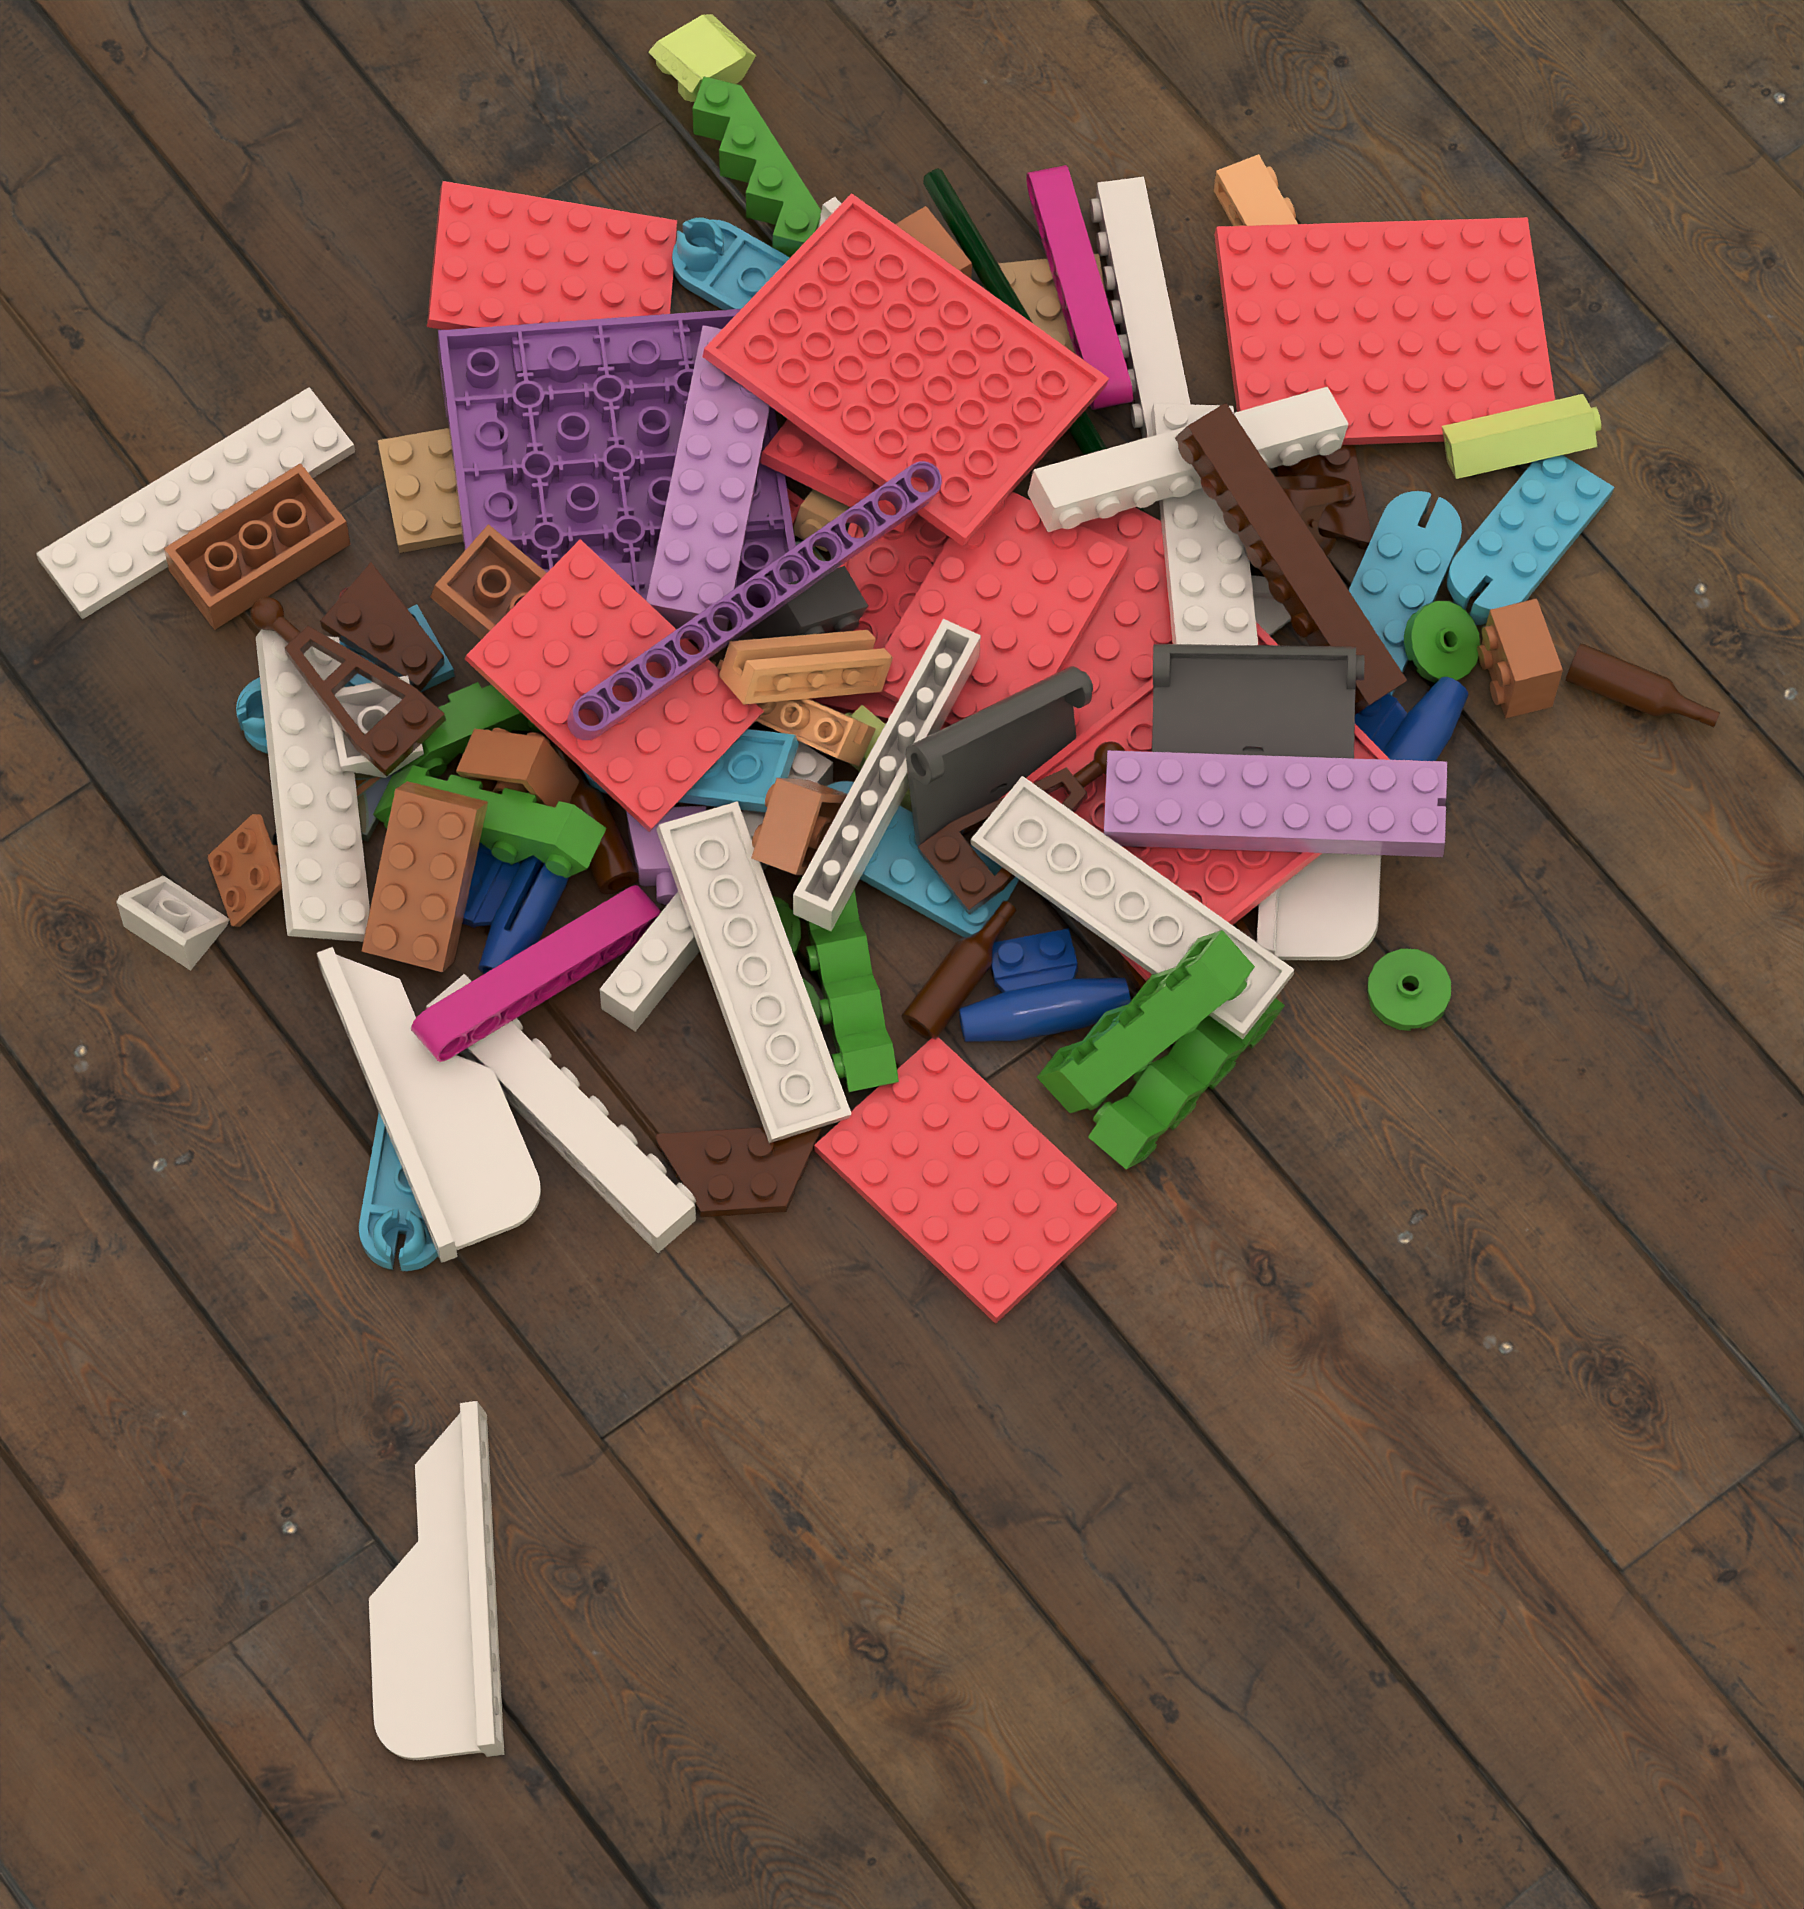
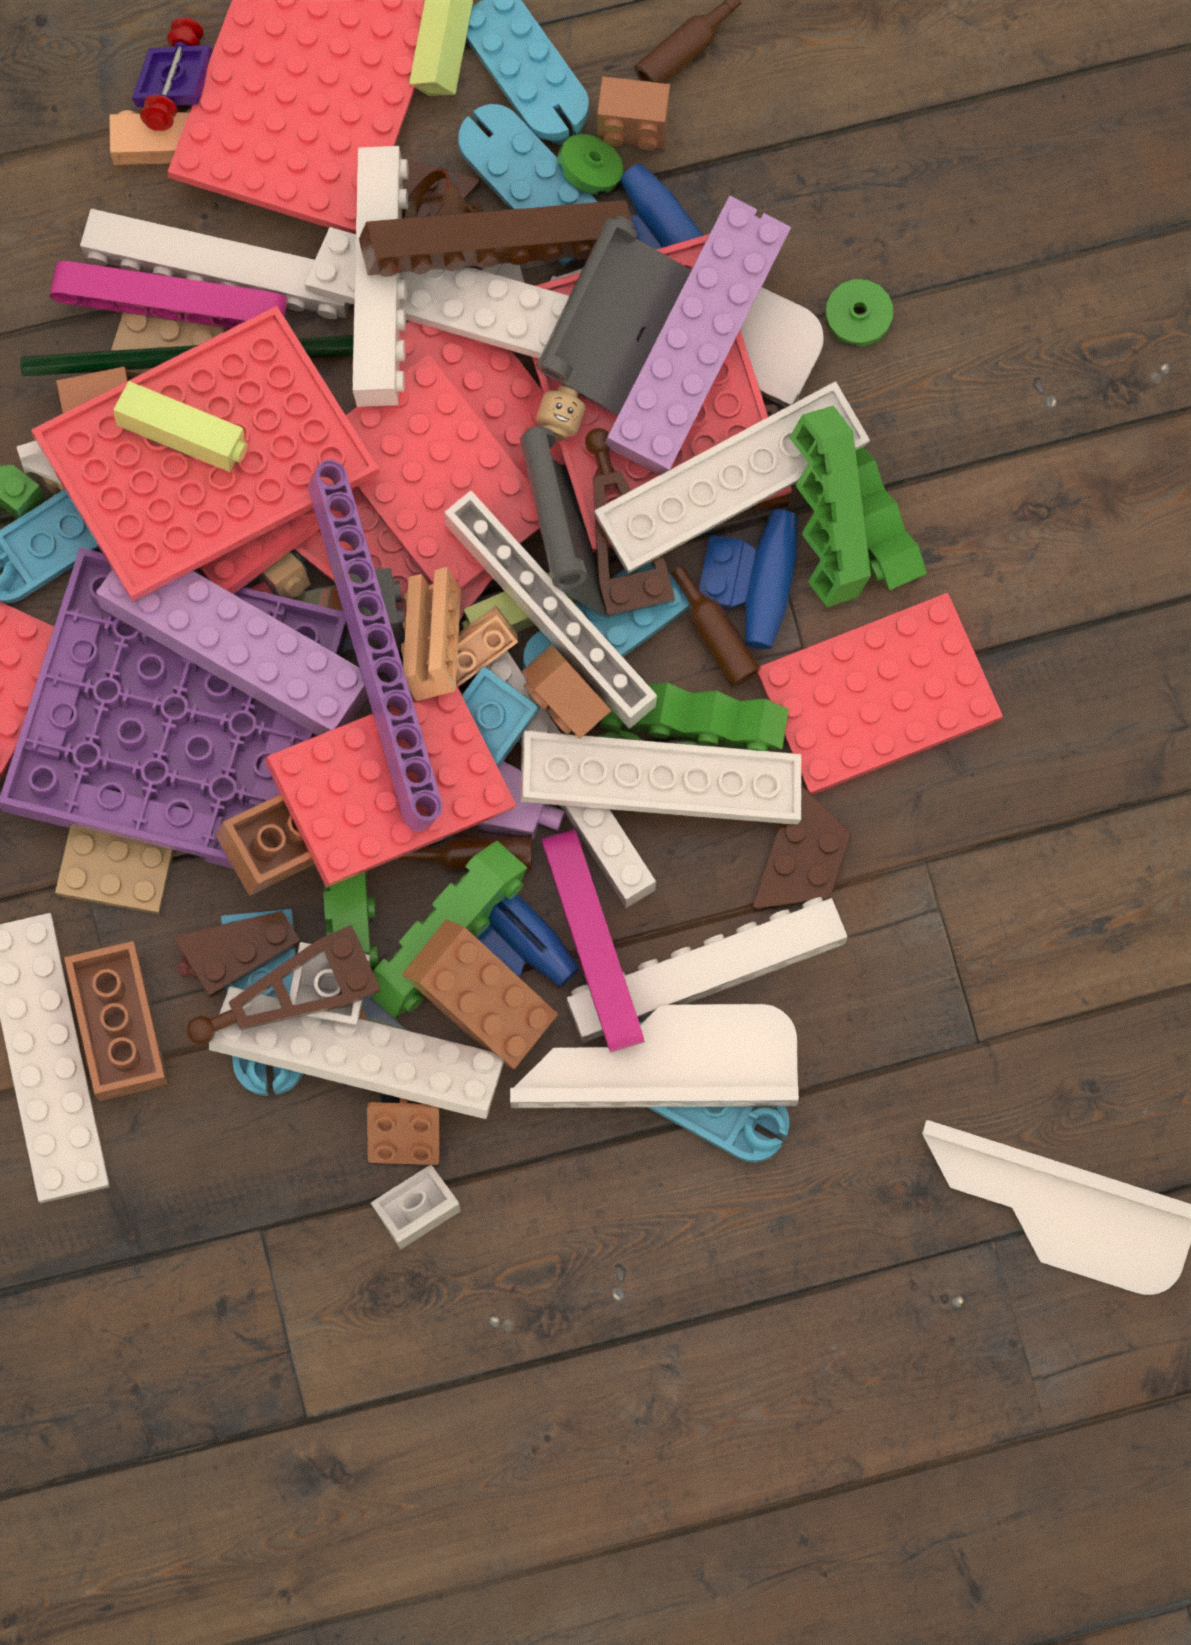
camera: 65 degrees left, 10 degrees up
(519, 764) = (414, 889): nougat brick -> none
(916, 324) = (180, 427): none -> yellowish green brick
(1121, 703) = (561, 412): none -> tan head
(1333, 195) = (172, 75): none -> dark purple plate

